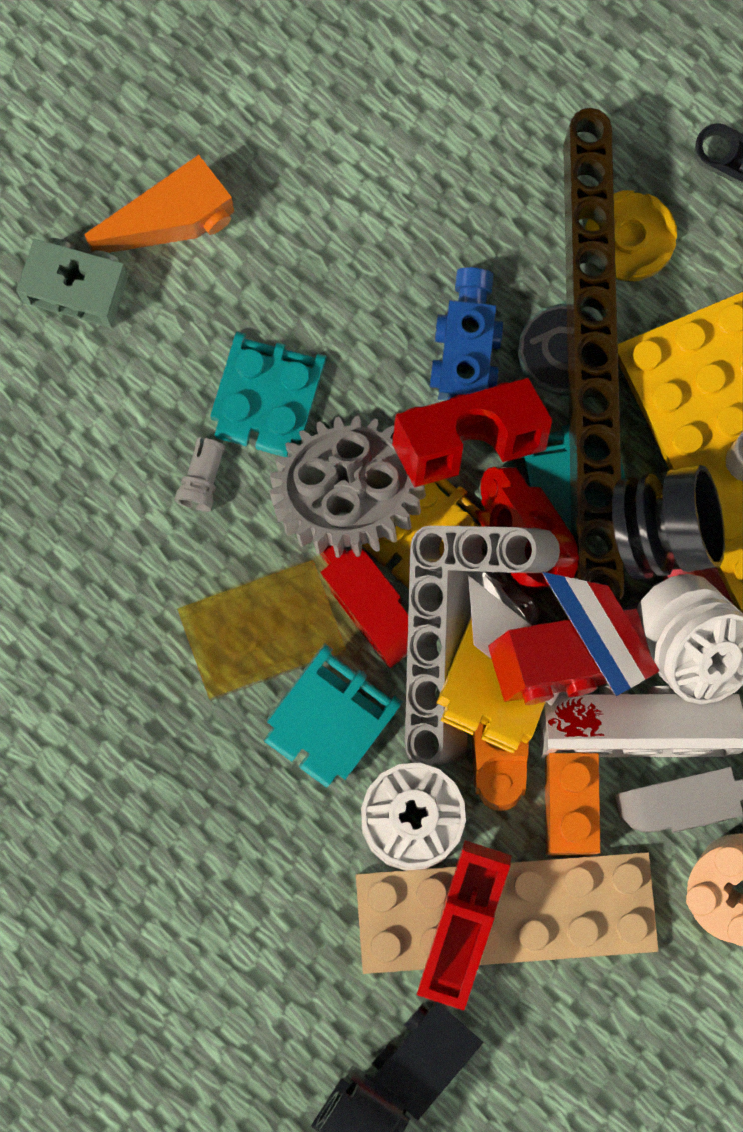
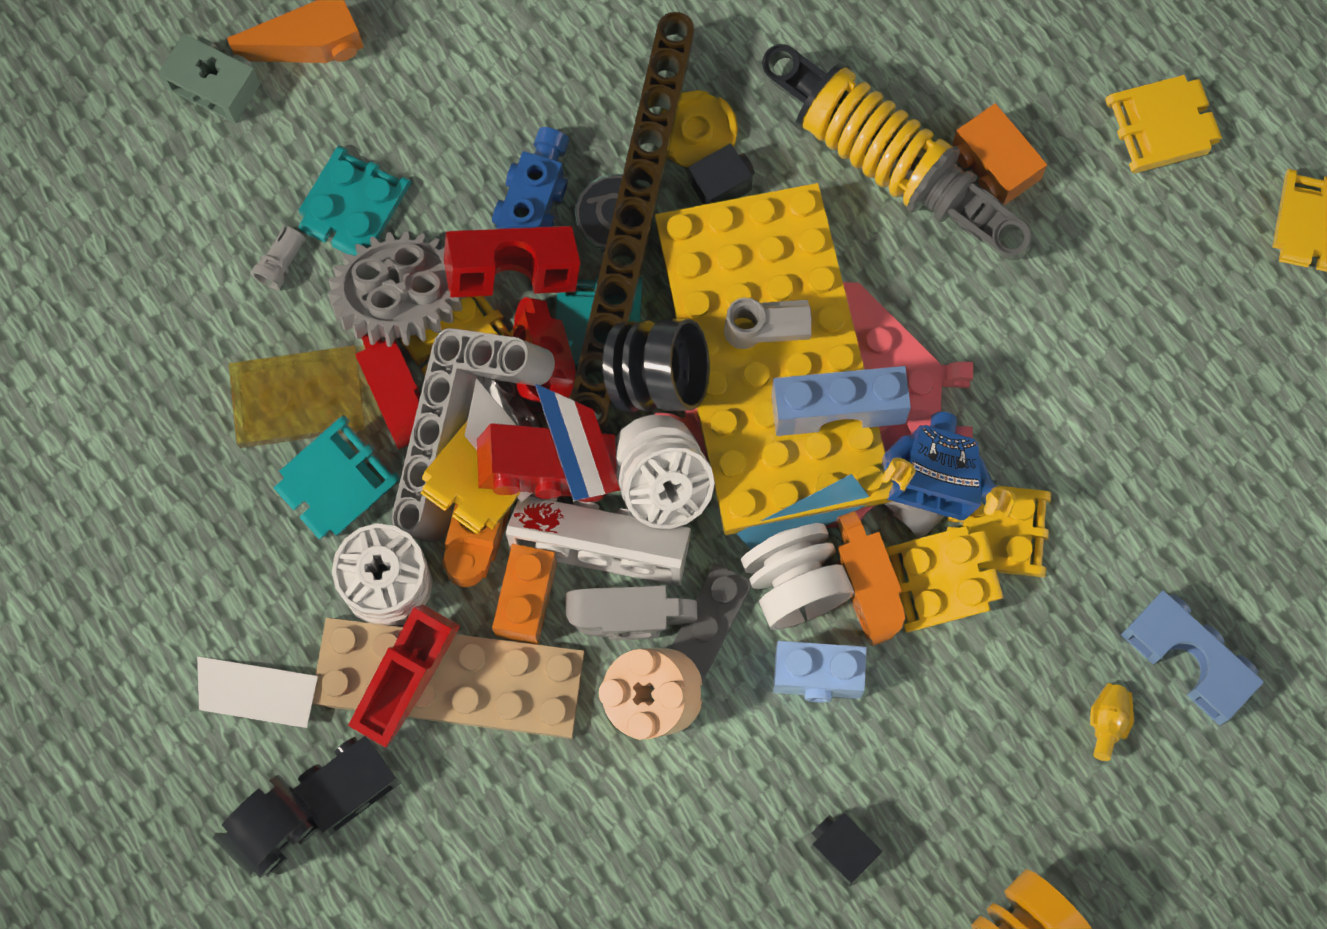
camera: 15 degrees right, 5 degrees down
(297, 973) = (255, 692): none -> white sticker
(674, 286) = (721, 176): none -> black brick

